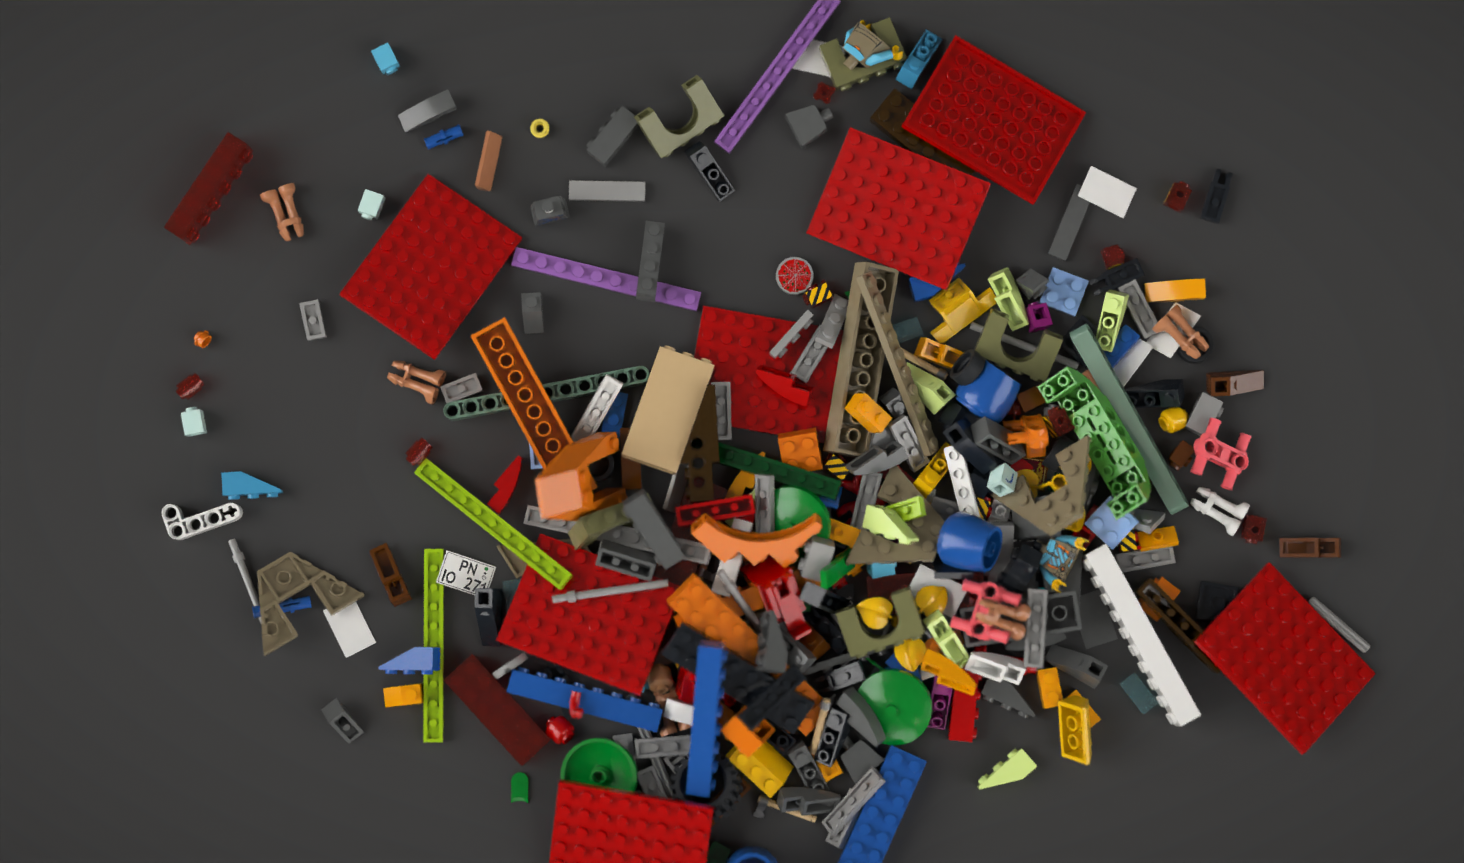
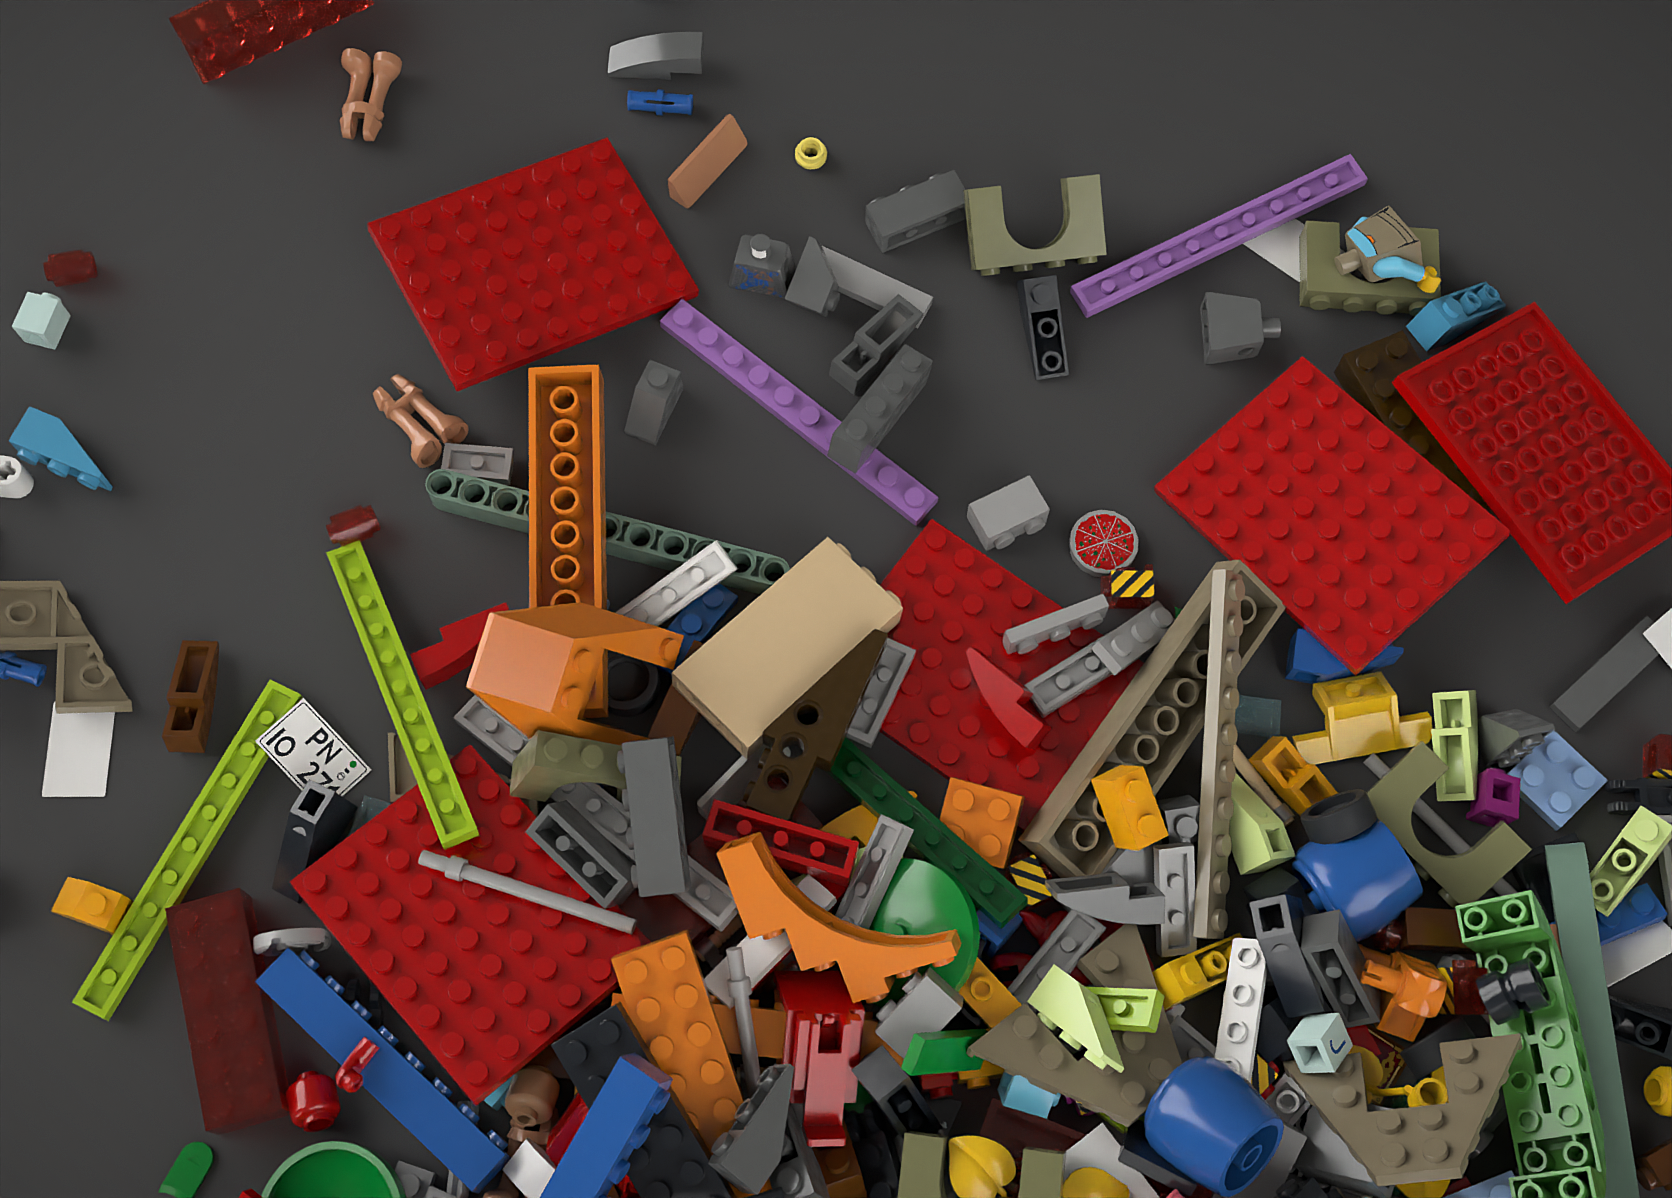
camera: 25 degrees right, 15 degrees down
(202, 339) = (134, 212): orange plate -> none
(313, 320) = (312, 261): light grey plate -> none
(371, 205) = (498, 142): light aqua brick -> none
(418, 658) = (143, 849): slope -> none
(581, 206) = (814, 282): none -> dark grey slope
(629, 223) = (875, 344): none -> dark grey slope
(740, 284) = (1008, 514): none -> light grey brick
(829, 91) = (1284, 290): clear red plate -> none
(1076, 417) = (1513, 991): none -> black wheel

